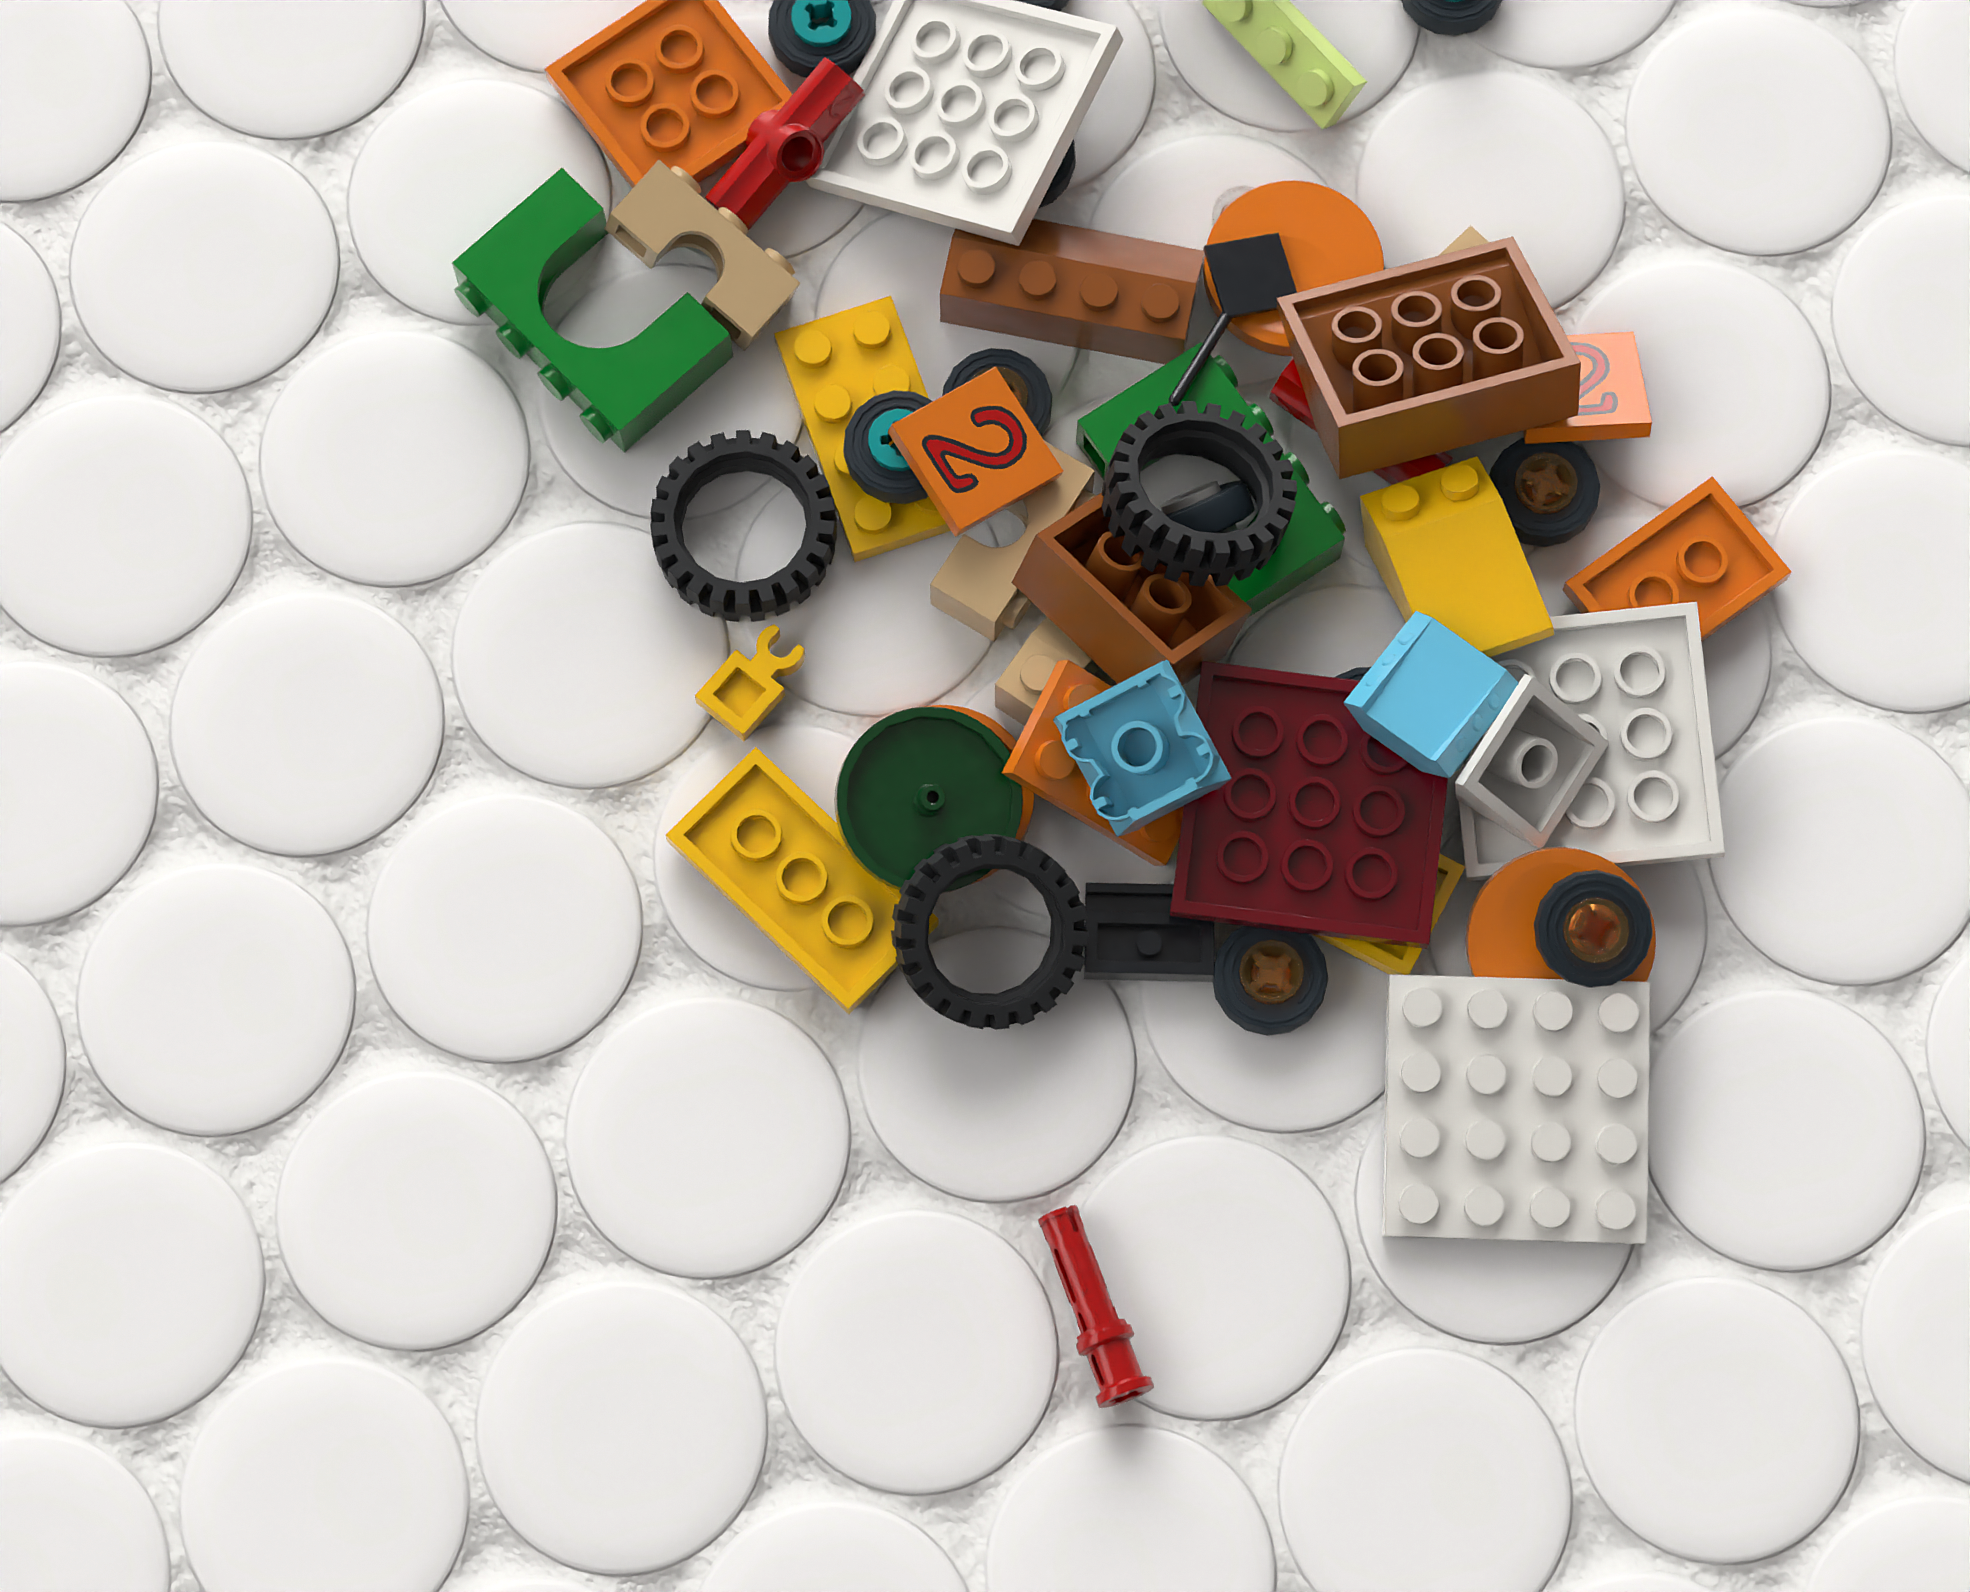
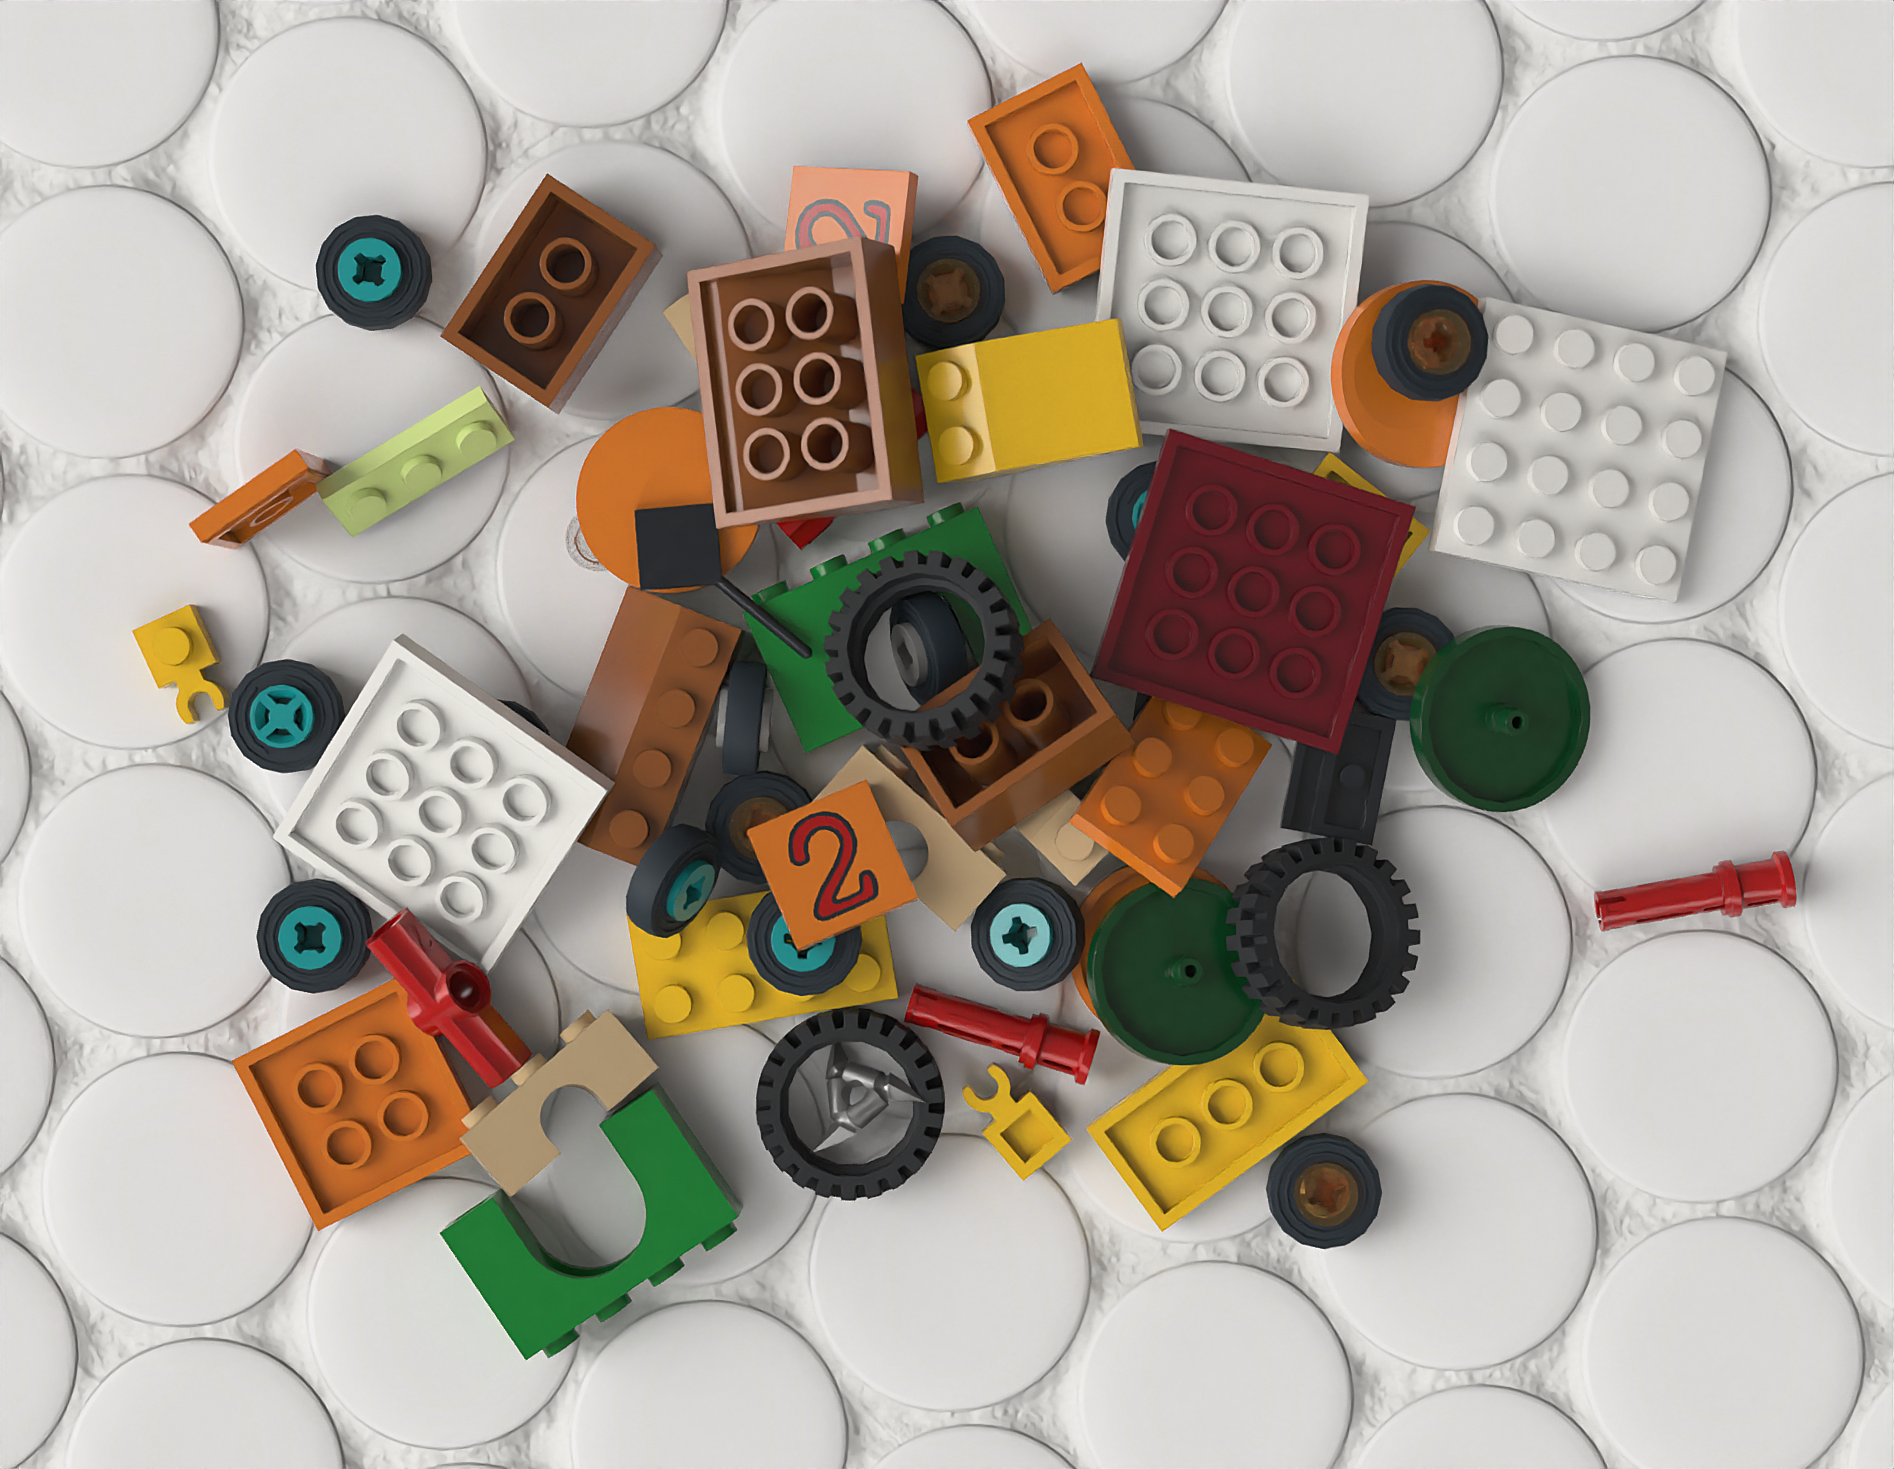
camera: 80 degrees left, 15 degrees up
(736, 529) = (844, 1077): none -> flat silver piece
(741, 1009) = (1314, 1169): none -> black wheel
(834, 683) = (1032, 1040): none -> red pin
(917, 675) = (1051, 930): none -> black wheel
(934, 317) = (673, 880): none -> black wheel
(1099, 361) = (744, 718): none -> black wheel
(1142, 749) = (1186, 758): medium azure slope -> none
(1234, 1076) = (1500, 718): none -> dark green piece
(1430, 696) = (1176, 457): medium azure slope -> none
(1464, 131) = (552, 294): none -> dark orange brick
(1530, 763) = (1252, 370): white slope -> none

